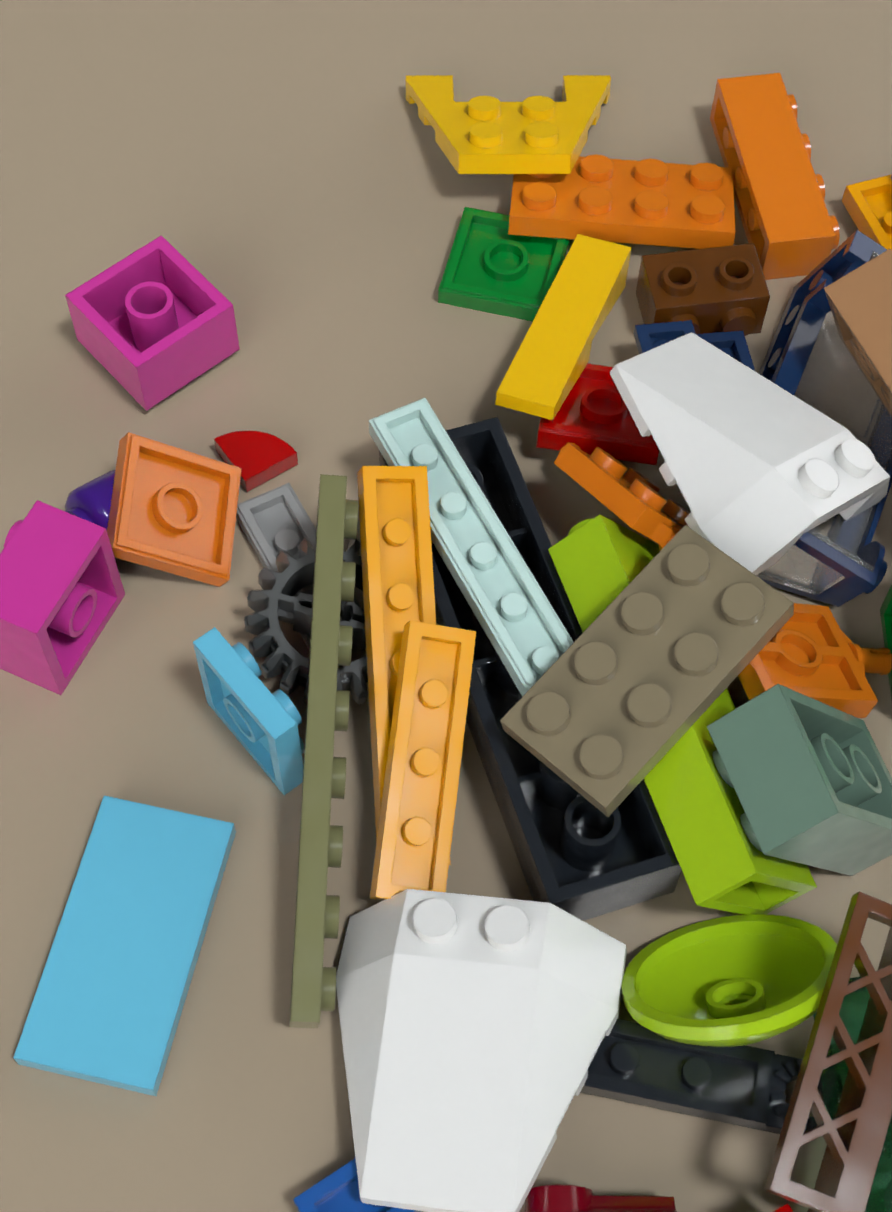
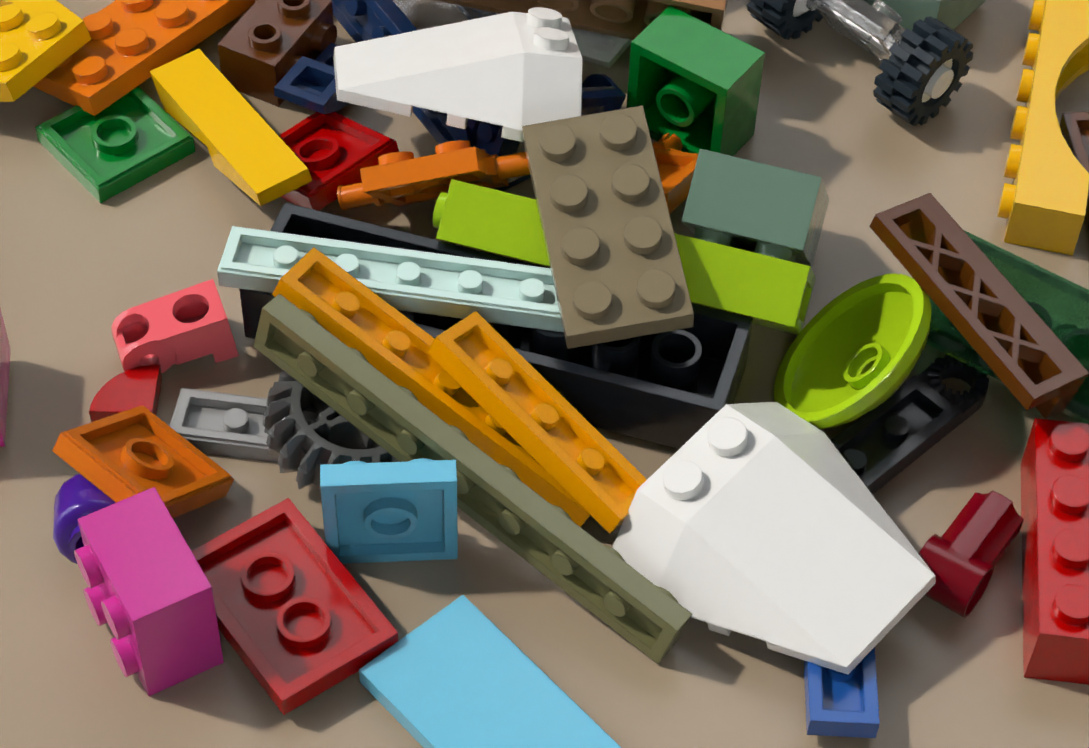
camera: 55 degrees left, 10 degrees down
(125, 704) = (291, 606): none -> red plate
(329, 436) = (175, 329): none -> coral leg

